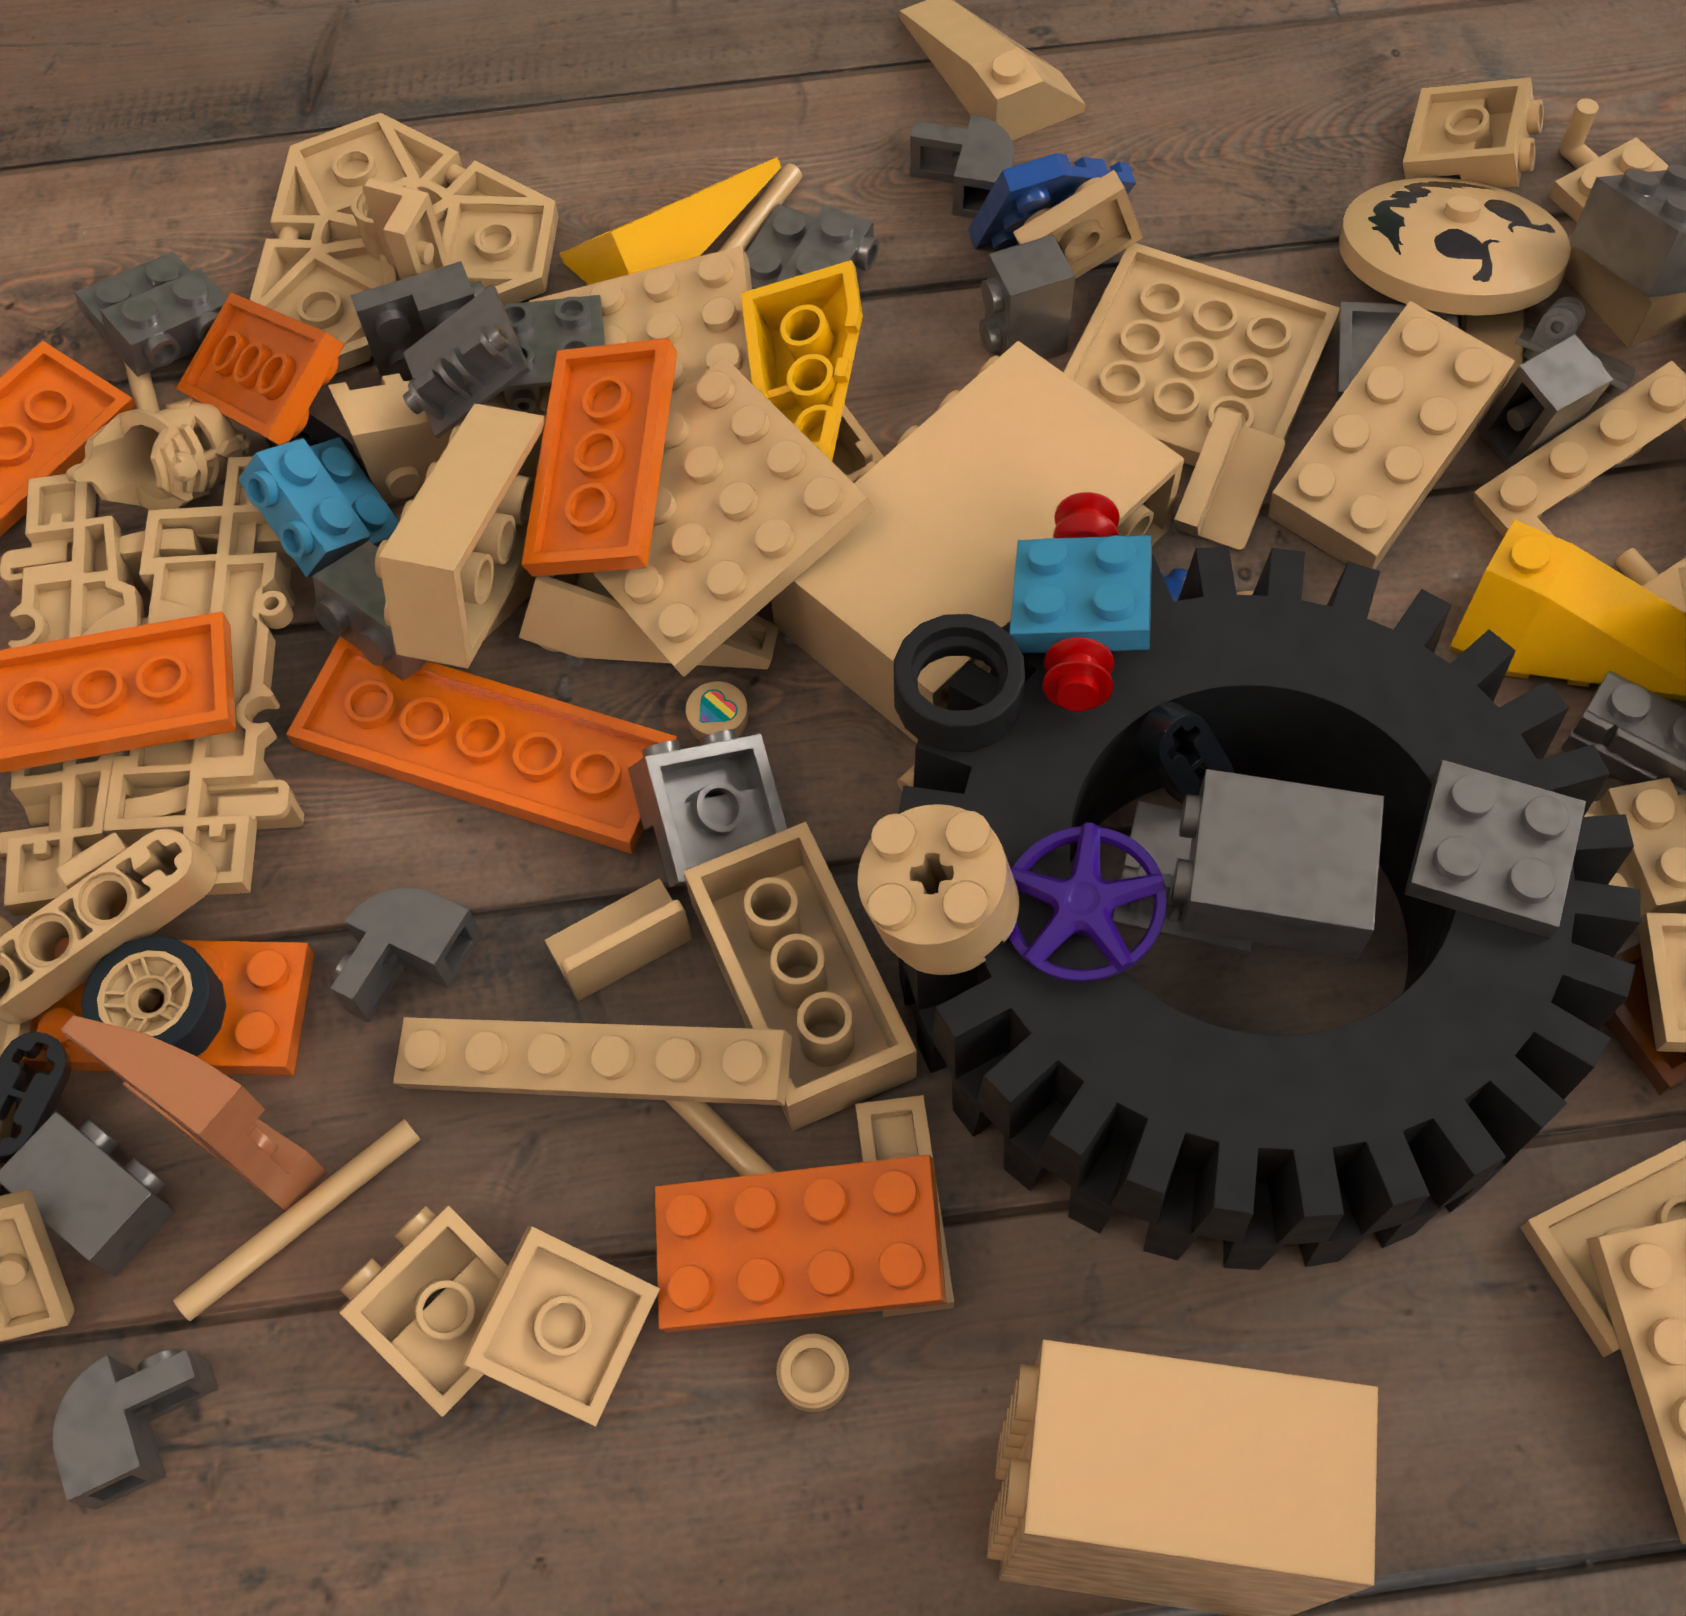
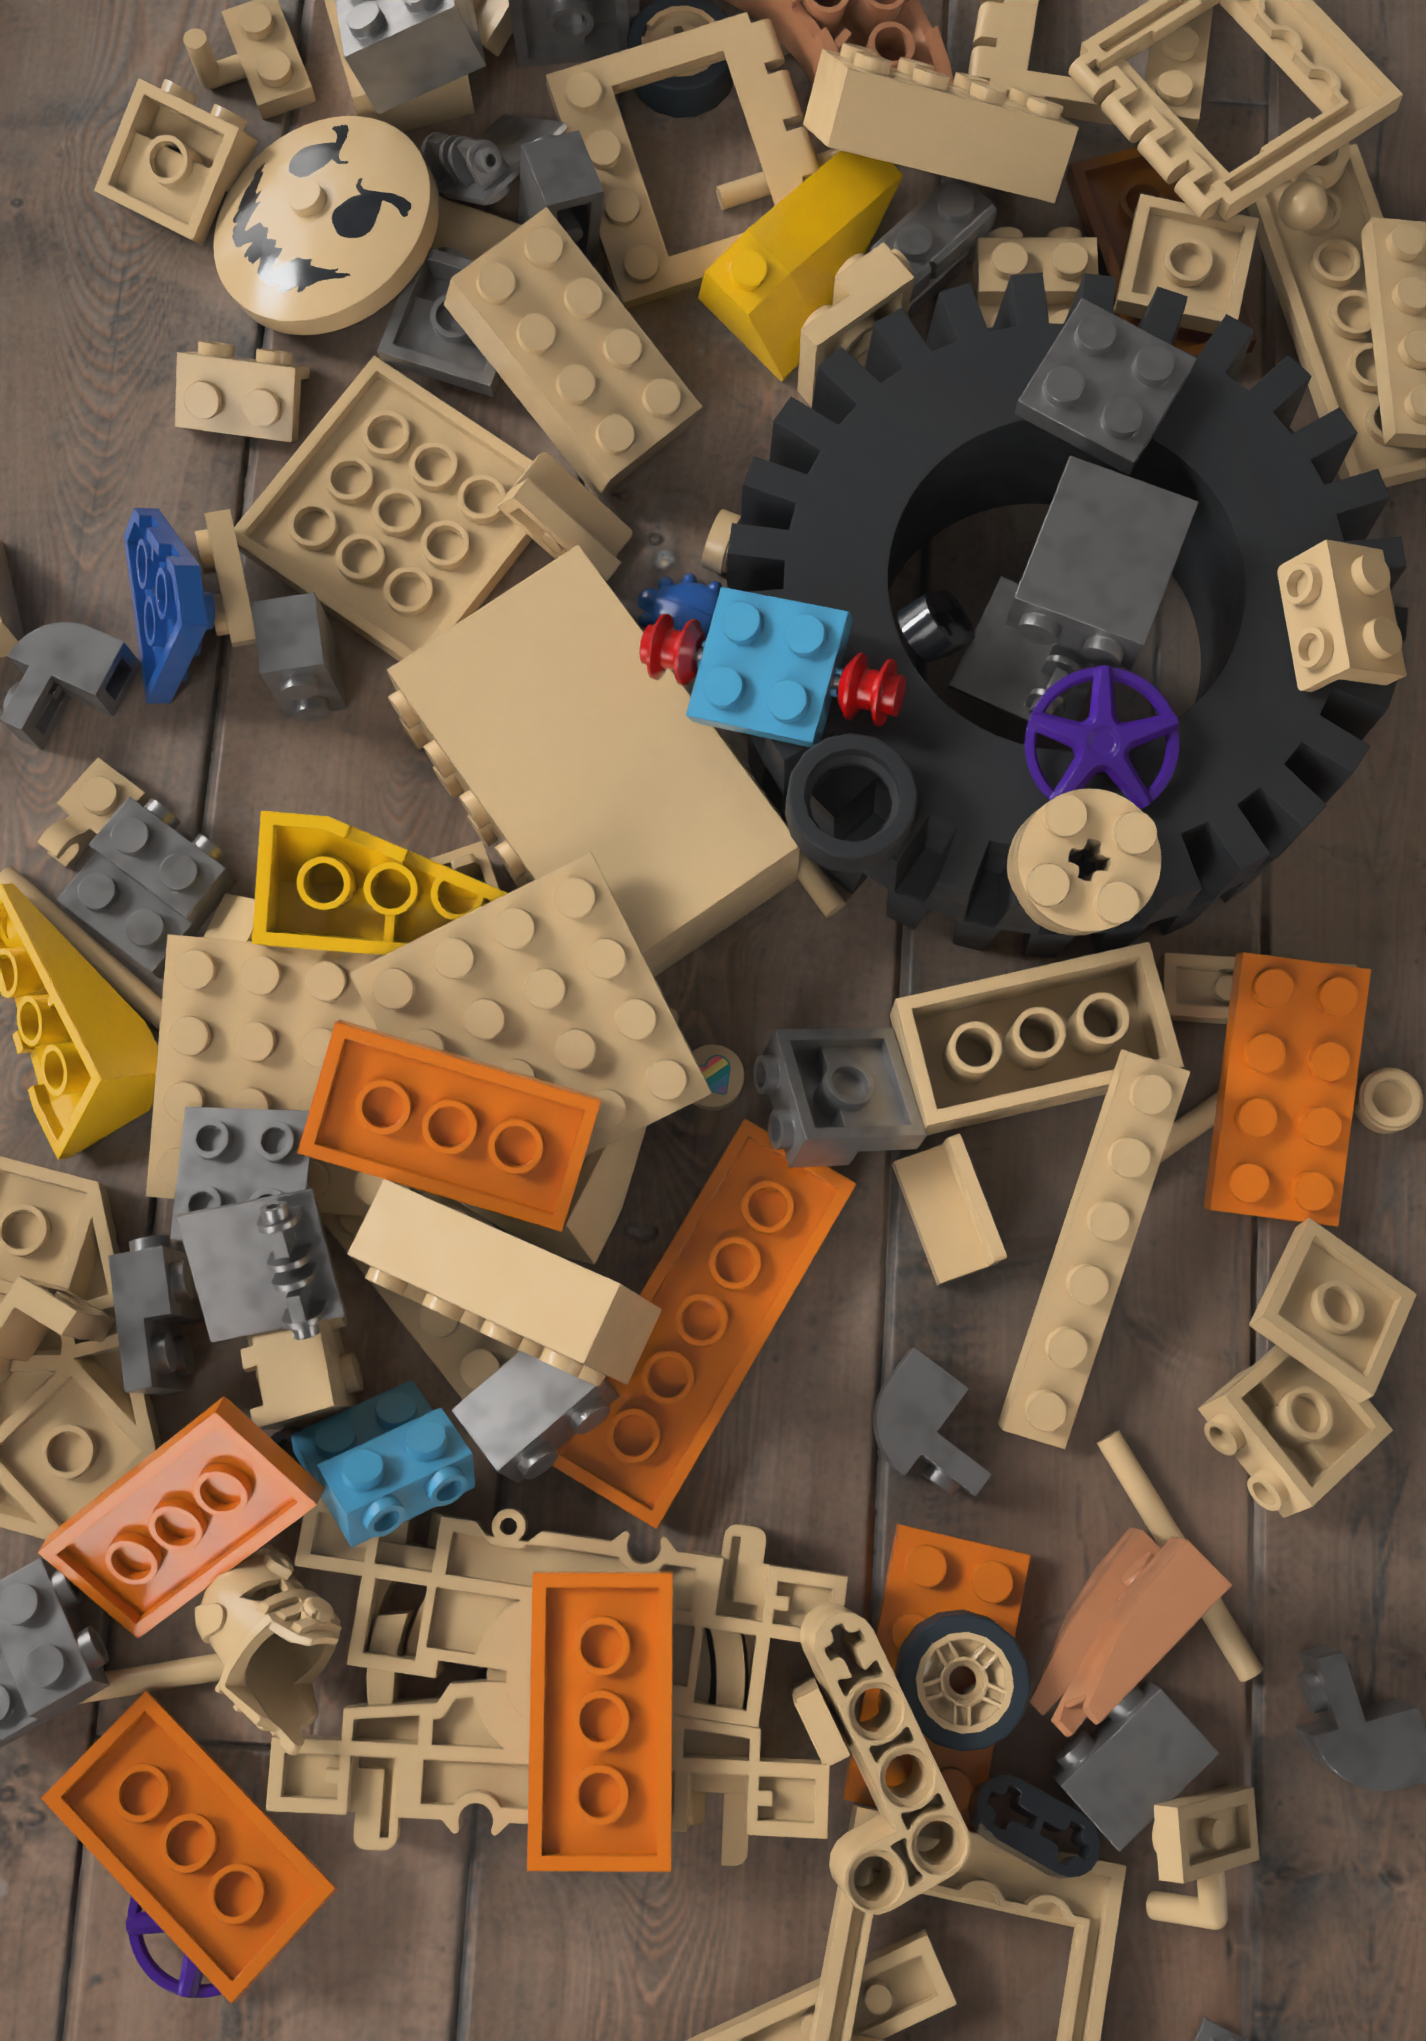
camera: 80 degrees left, 15 degrees up
(885, 211) = (89, 806): none -> tan plate
(1273, 225) = (239, 393): none -> tan bracket
(1303, 1128) = (1341, 616): none -> tan bracket
(1539, 658) = (863, 293): none -> tan plate

